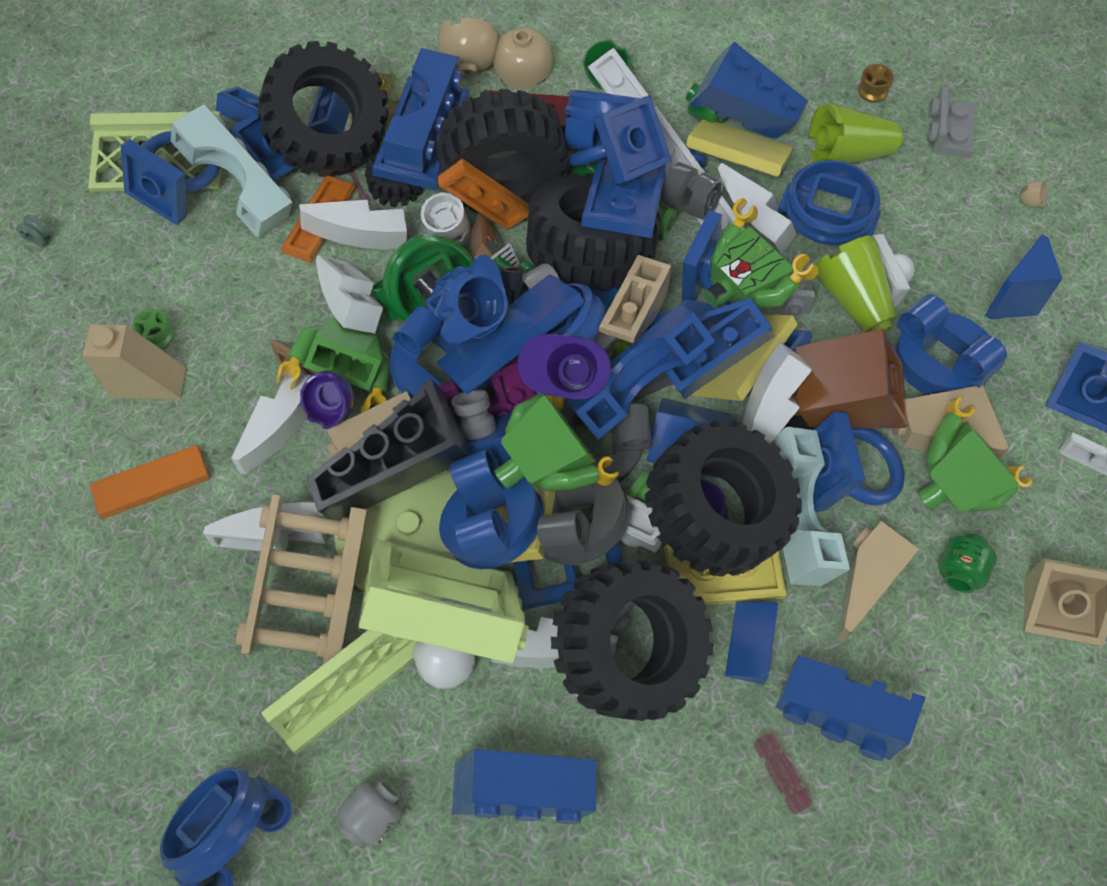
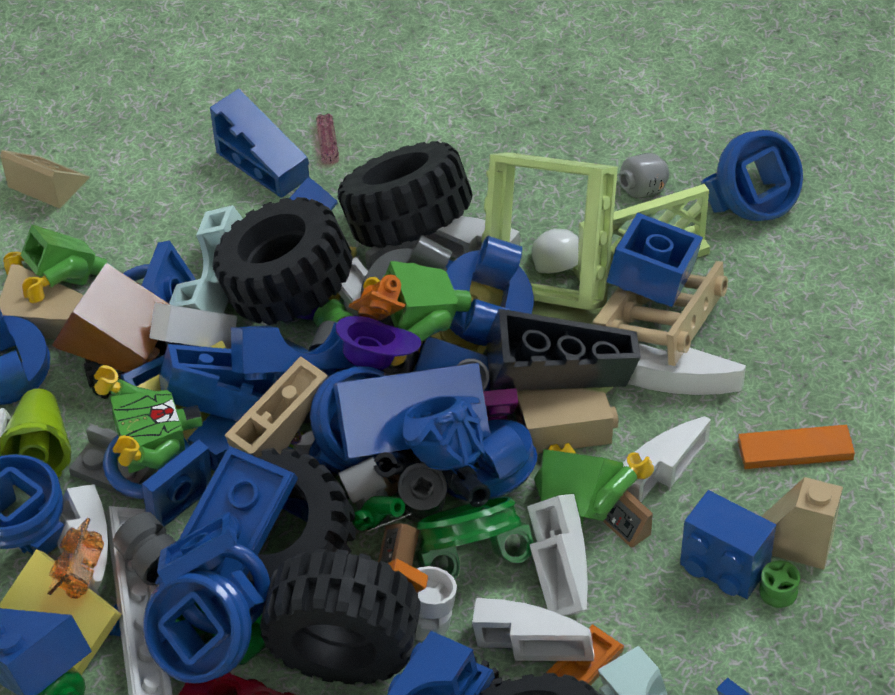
camera: 160 degrees left, 15 degrees down
(197, 328) = (726, 544): none -> blue brick
(311, 599) = (654, 259): none -> blue brick
(327, 399) = (600, 439): dark purple hair -> none
(524, 786) = (539, 142): blue wedge -> none
(585, 417) = (379, 299): none -> orange hinge
(747, 165) = (68, 571): none -> clear orange hinge
(873, 569) = (182, 219): tan slope -> none
(967, 563) = (103, 214): green head -> none

